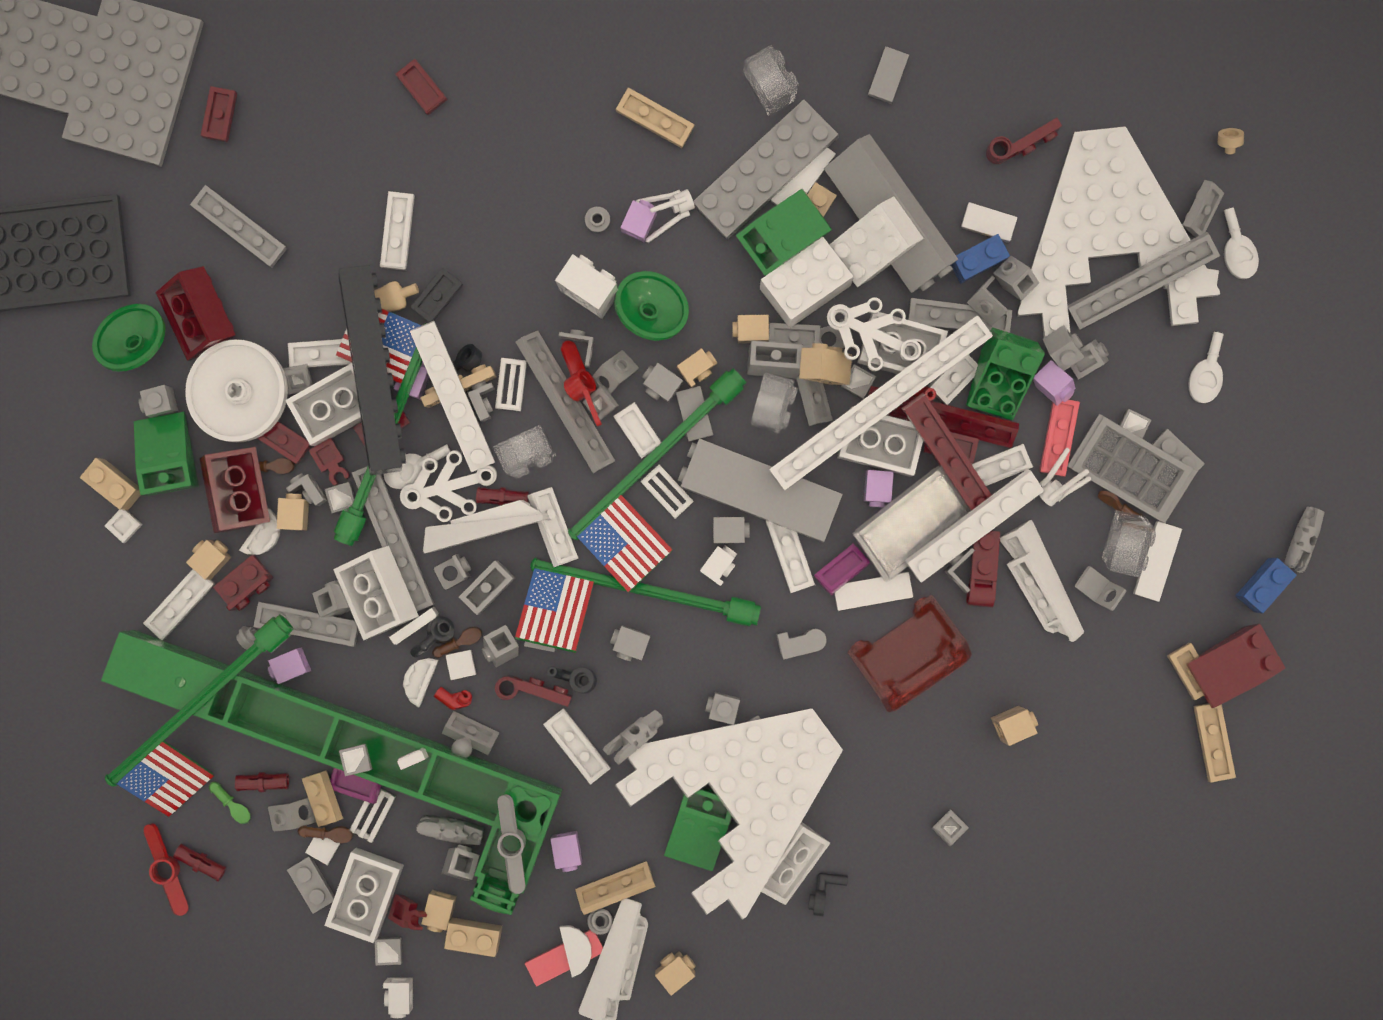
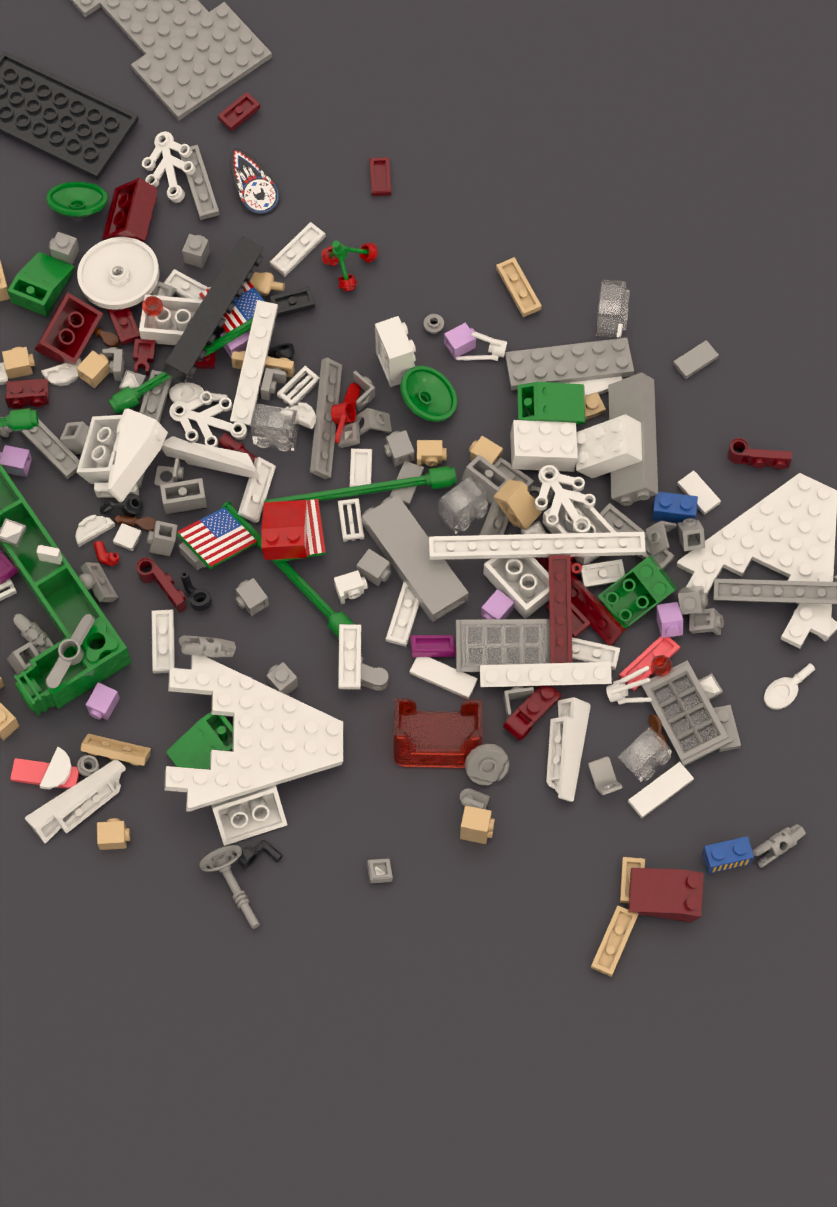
camera: 35 degrees right, 20 degrees down
(191, 228) = (168, 163): none -> white plant
(296, 307) = (196, 250): none -> light grey brick
(297, 189) = (253, 183): none -> shield
(297, 406) = (150, 301): none -> clear red plate
(406, 573) = (136, 448): none -> white wedge
(442, 214) = (339, 252): none -> red plant
(538, 414) = (306, 414): none -> white tile
(614, 553) = (284, 530): none -> red slope
(775, 642) = (349, 656): none -> white tile
(808, 928) = (221, 860): none -> light grey dish
(980, 656) = (487, 764): none -> light grey tile
(992, 699) = (473, 798): none -> light grey piece
(1071, 437) = (661, 665): none -> clear red plate

